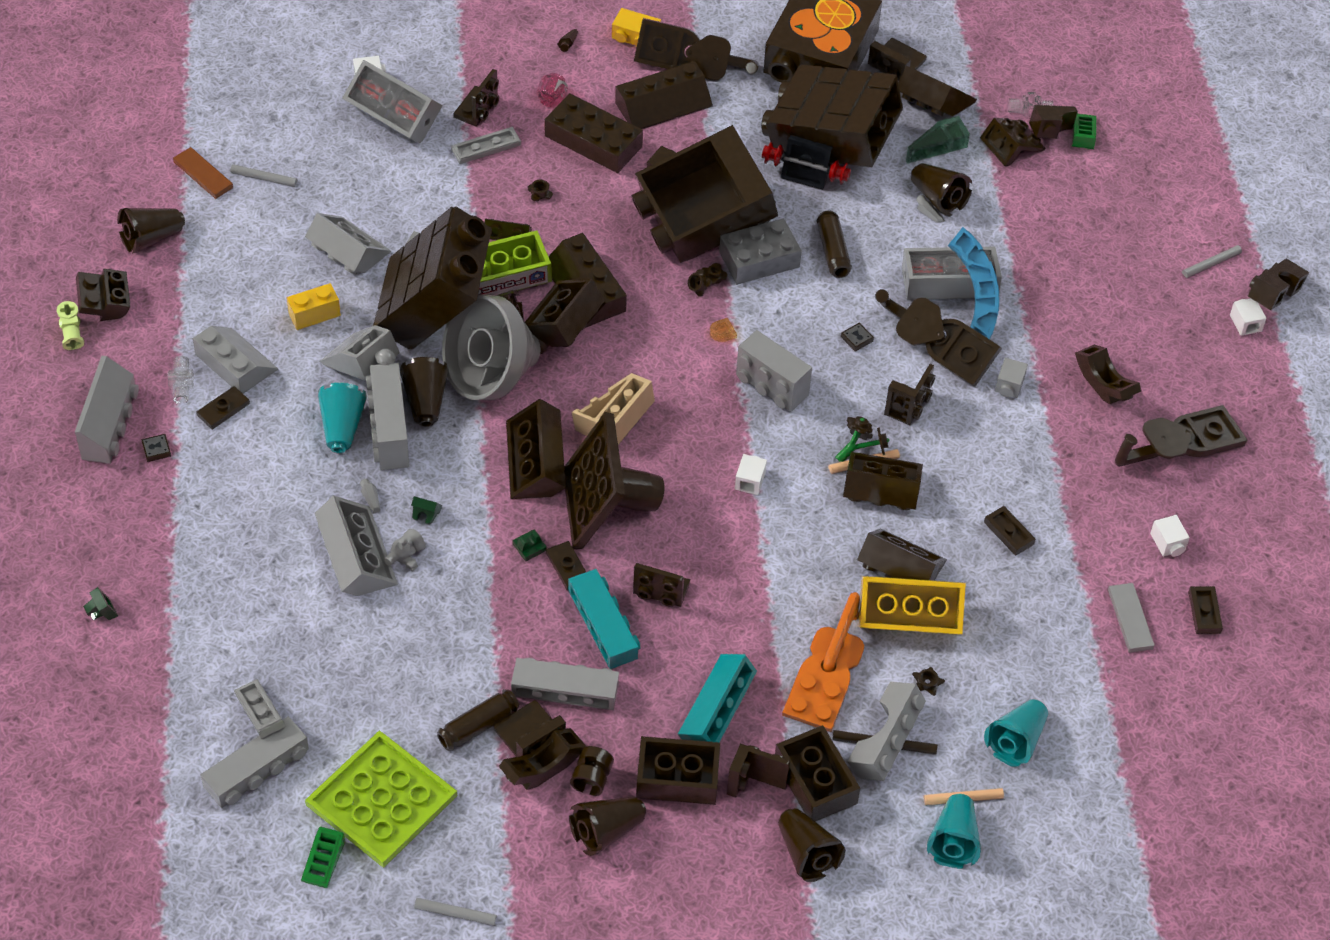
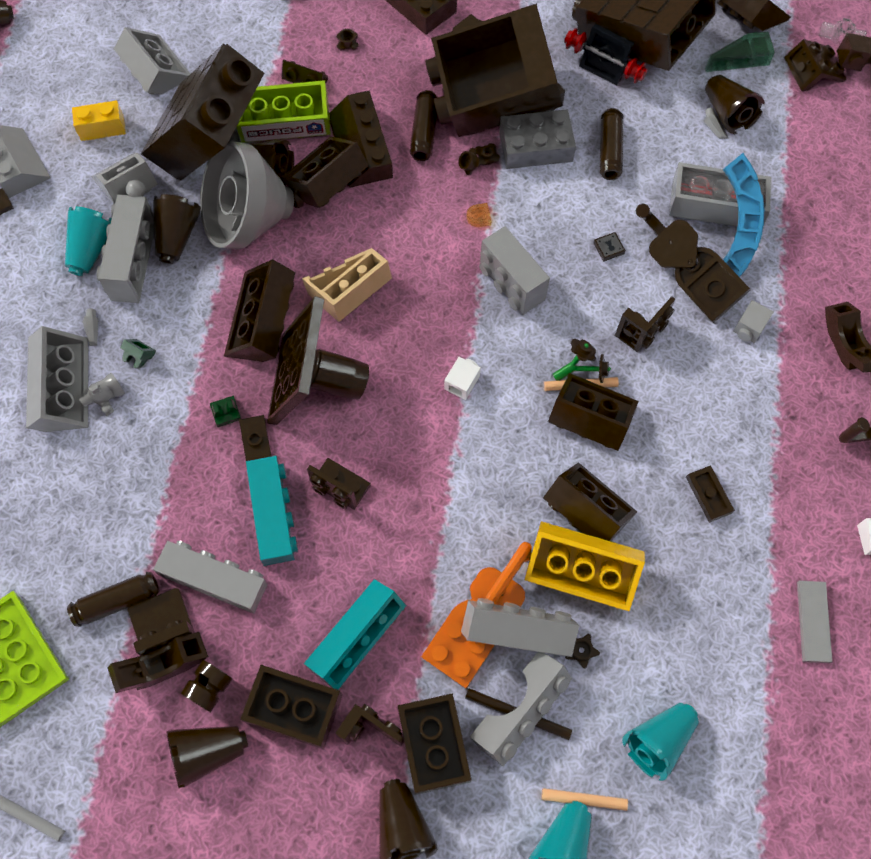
camera: 15 degrees right, 15 degrees up
(644, 258) = (423, 126): none -> dark brown axle
(866, 663) = (519, 627): none -> light grey brick

